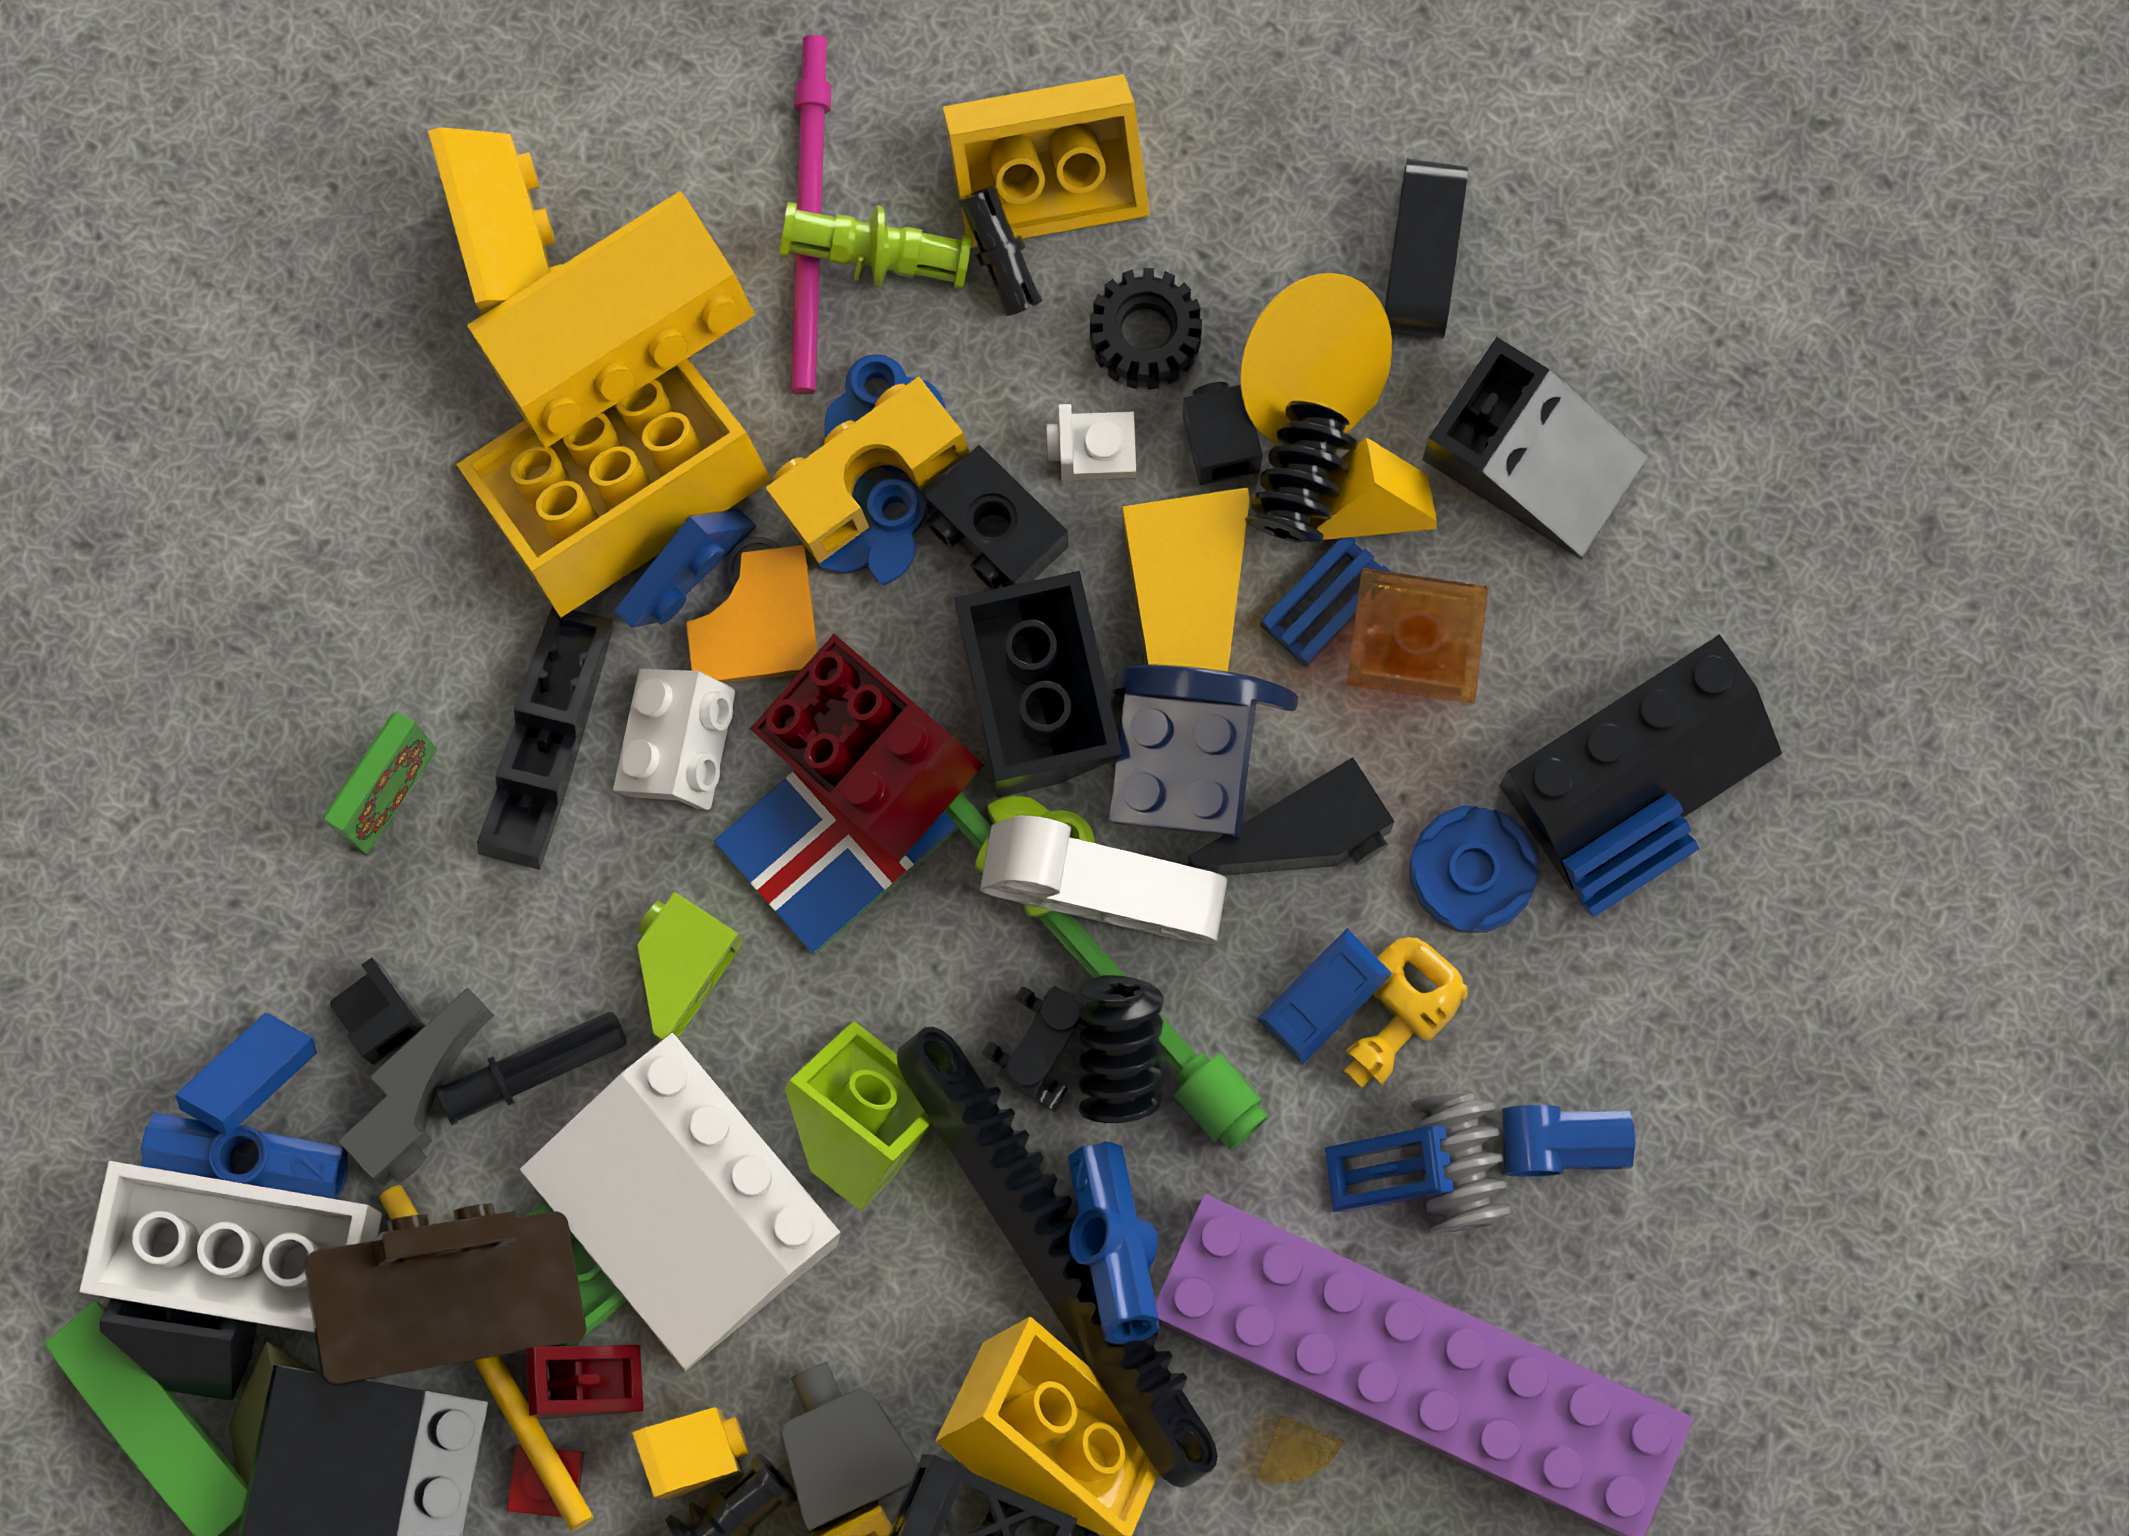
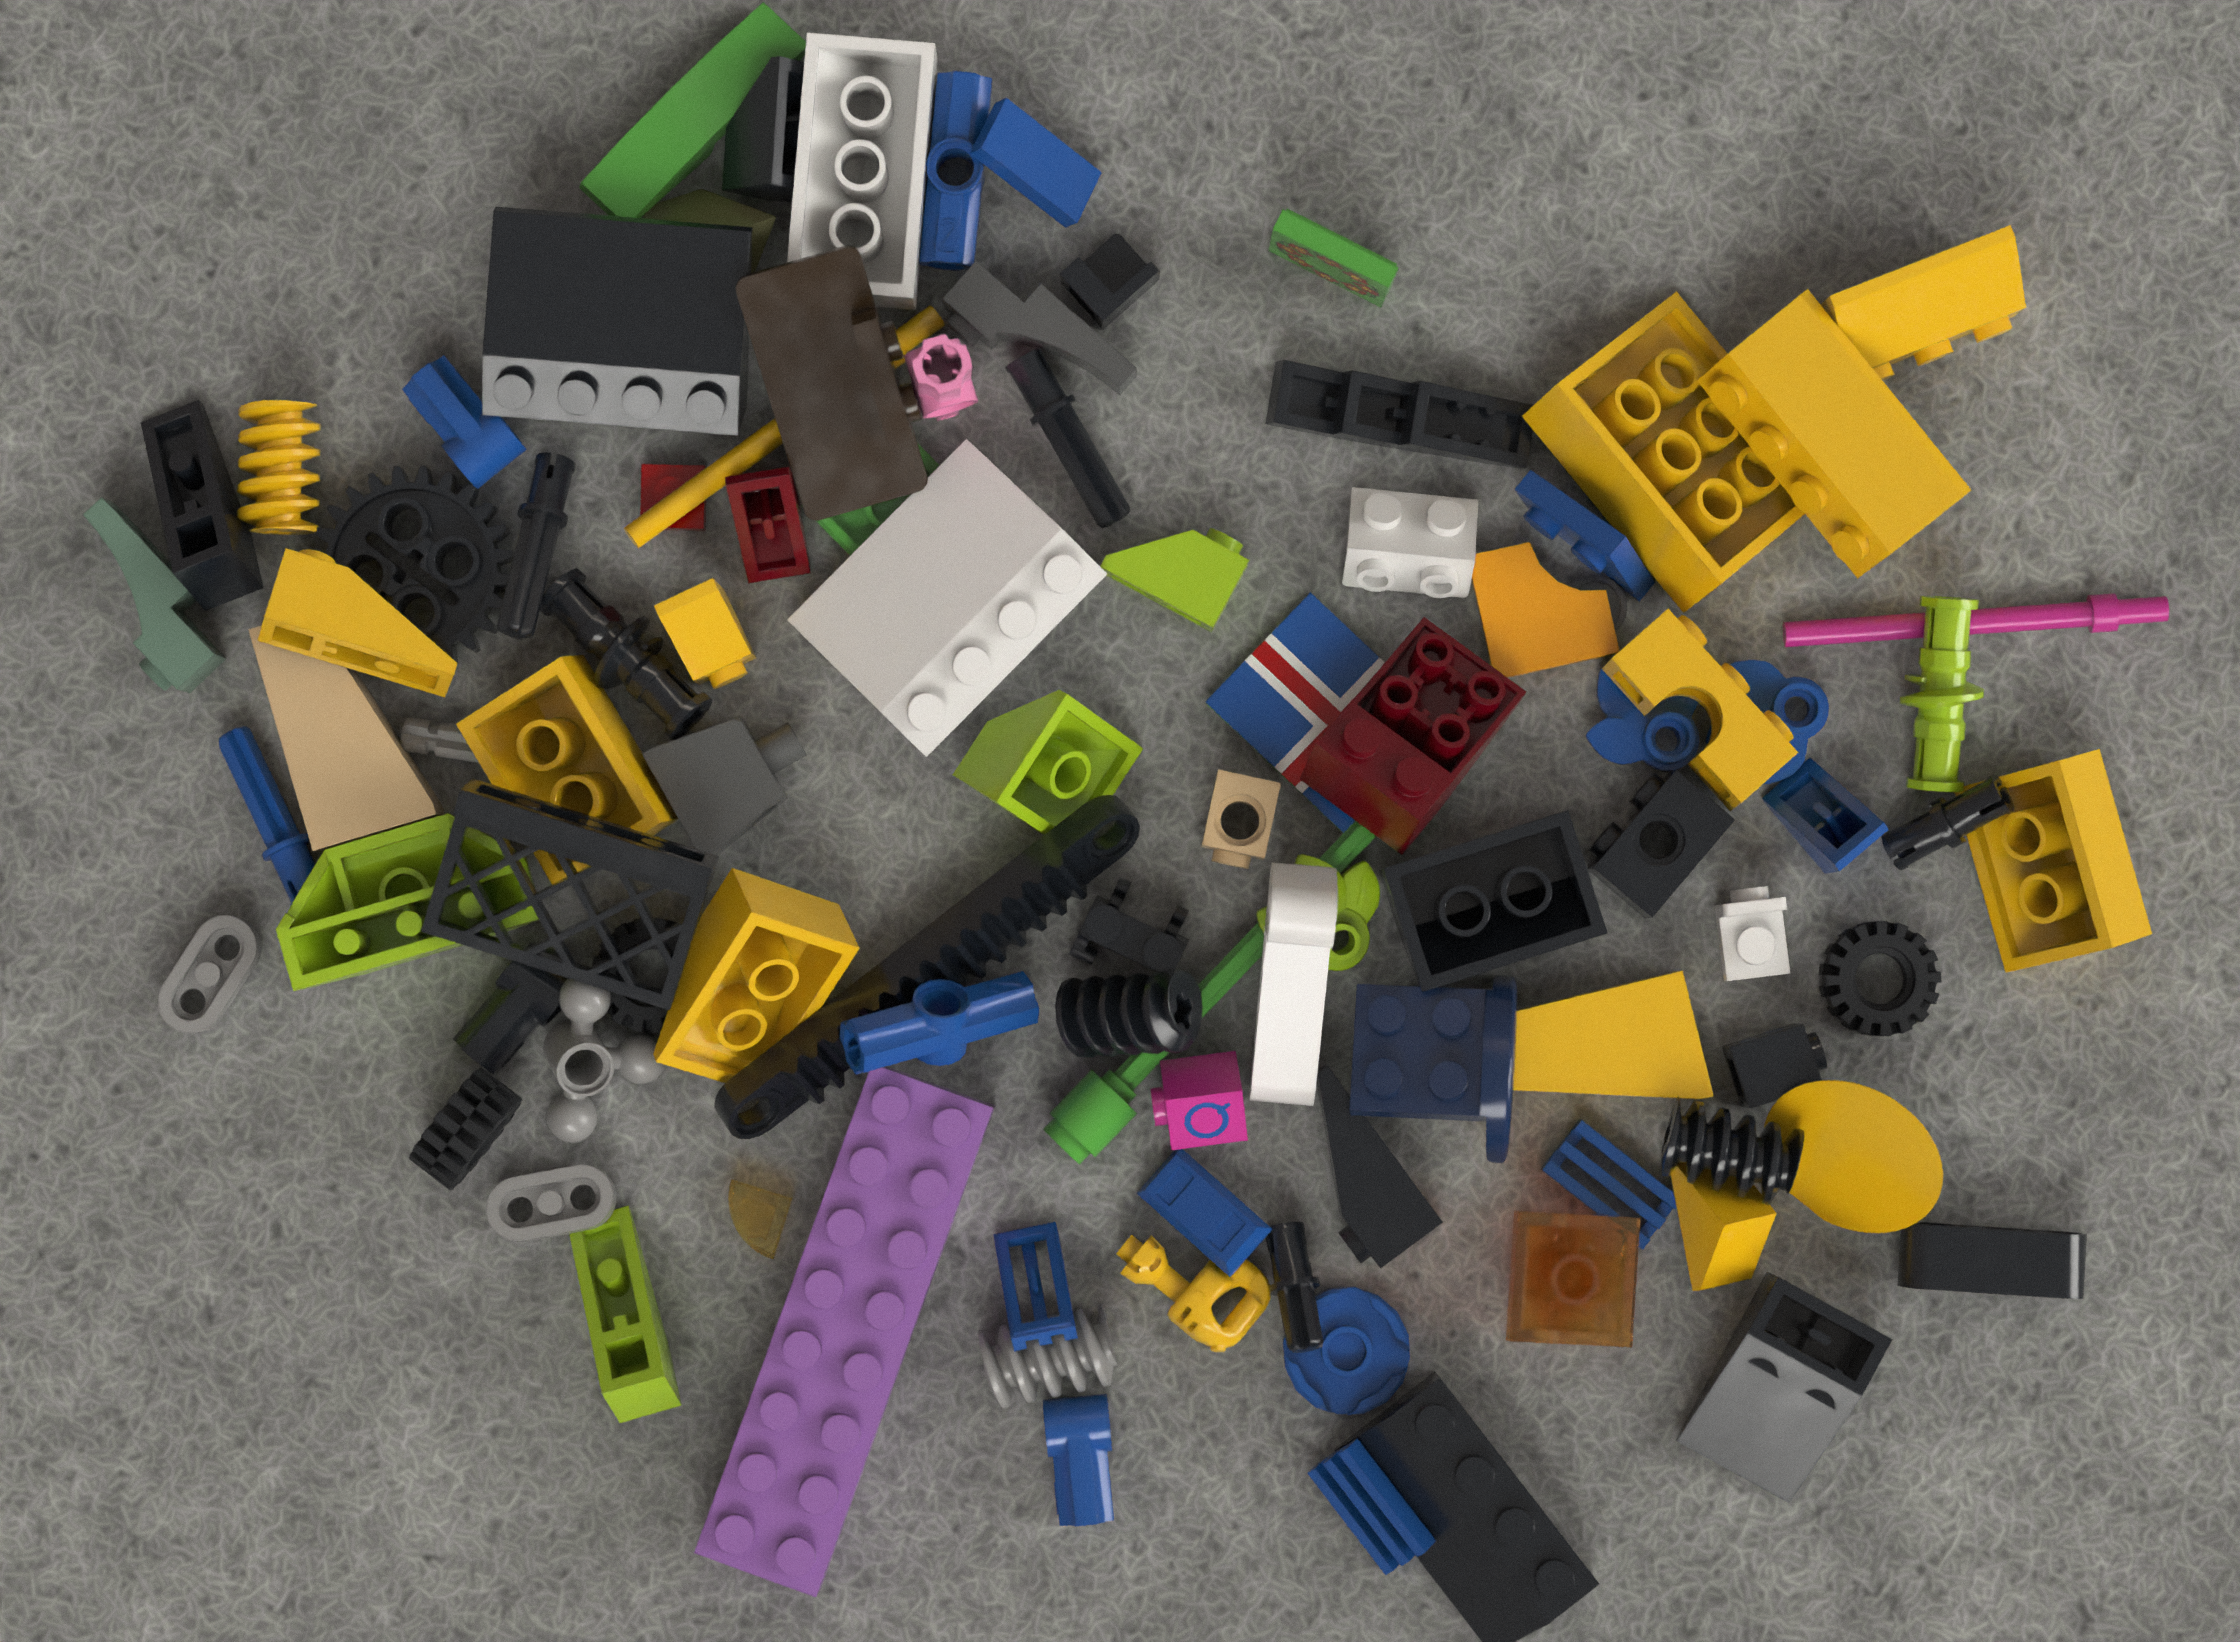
camera: 85 degrees right, 10 degrees up
(450, 1177) = (941, 377): none -> bright pink piece
(916, 902) = (1247, 790): none -> tan brick
(986, 364) = (1824, 817): none -> blue slope
(1213, 987) = (1200, 1100): none -> dark pink brick
(1406, 911) = (1294, 1286): none -> black axle

